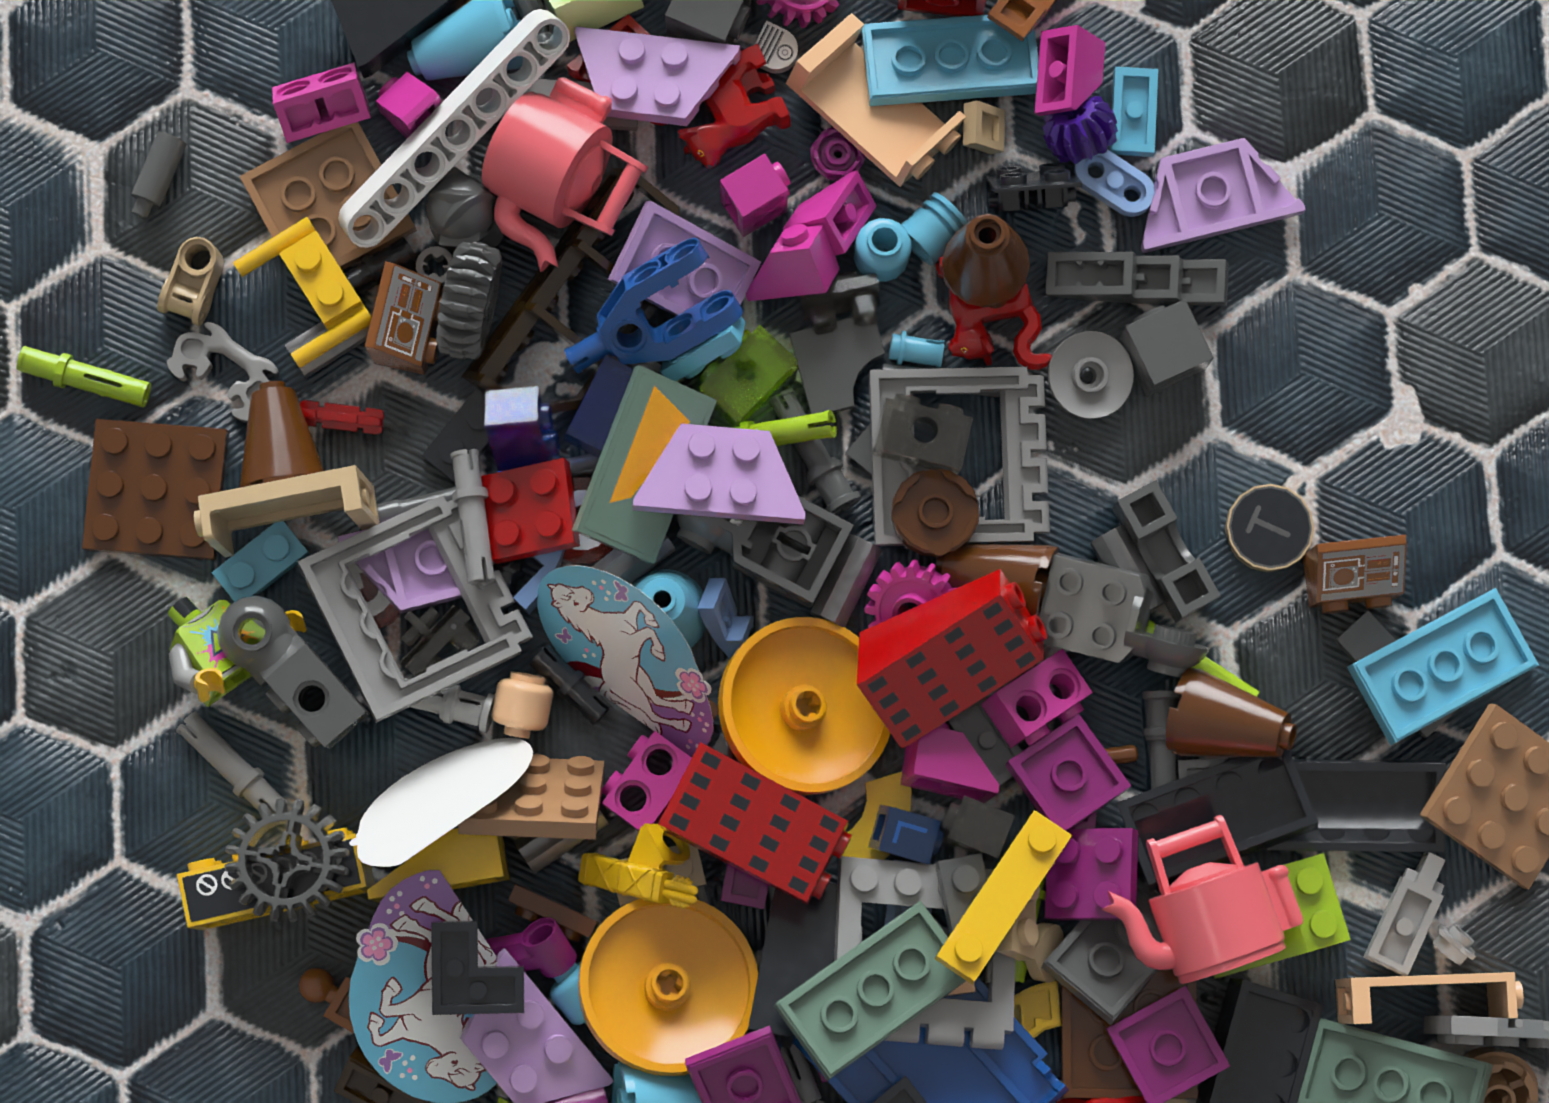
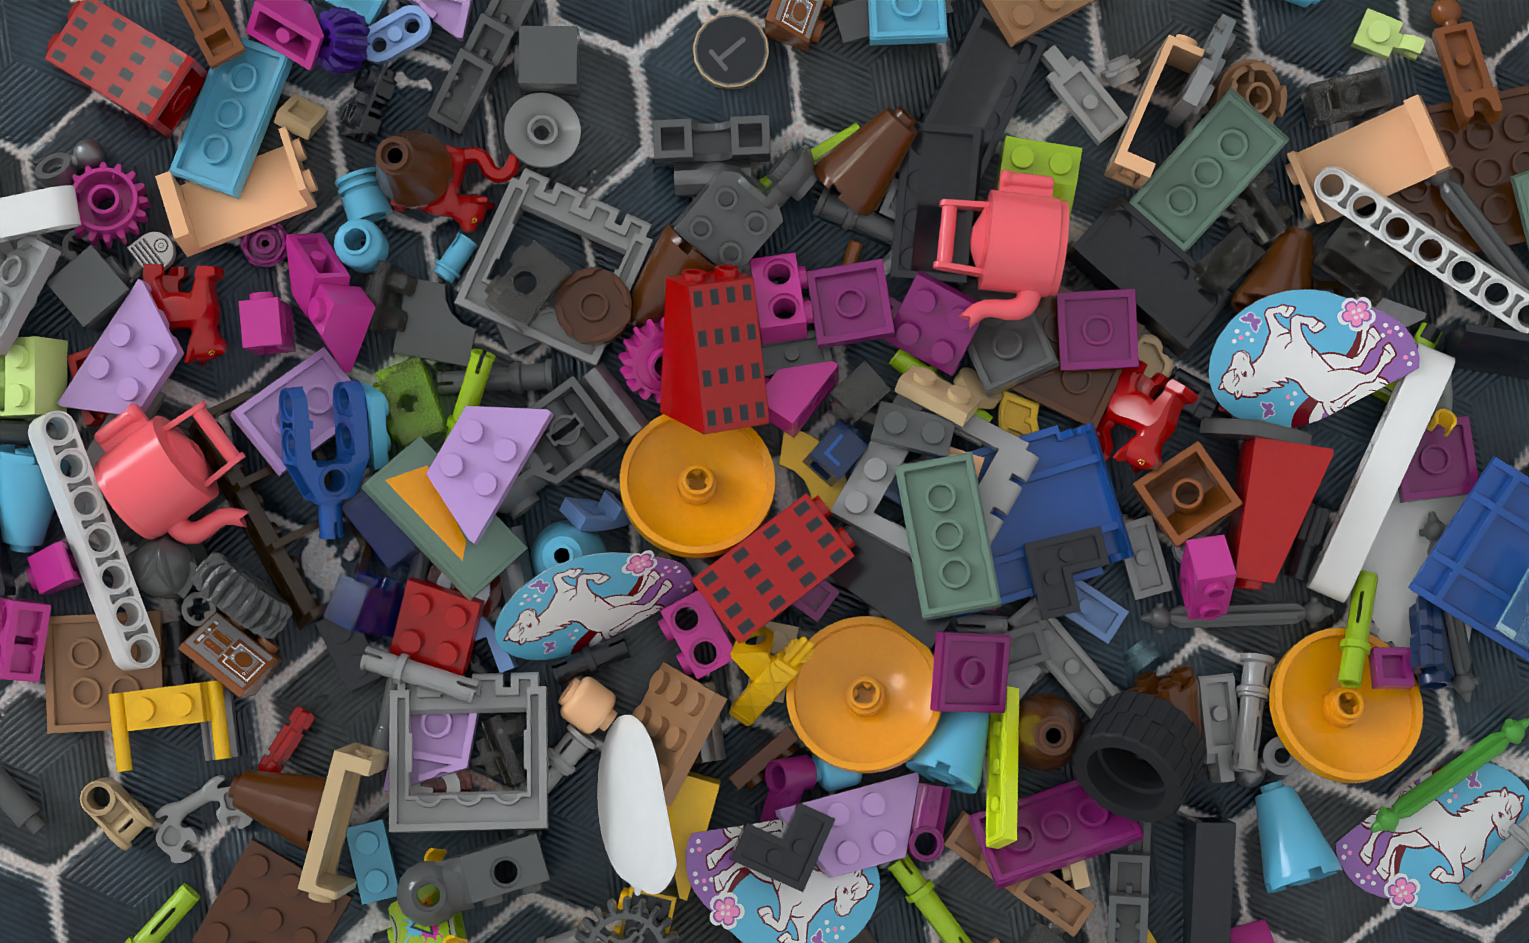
camera: 65 degrees left, 5 degrees up
(1003, 897) = (924, 400): yellow plate -> none

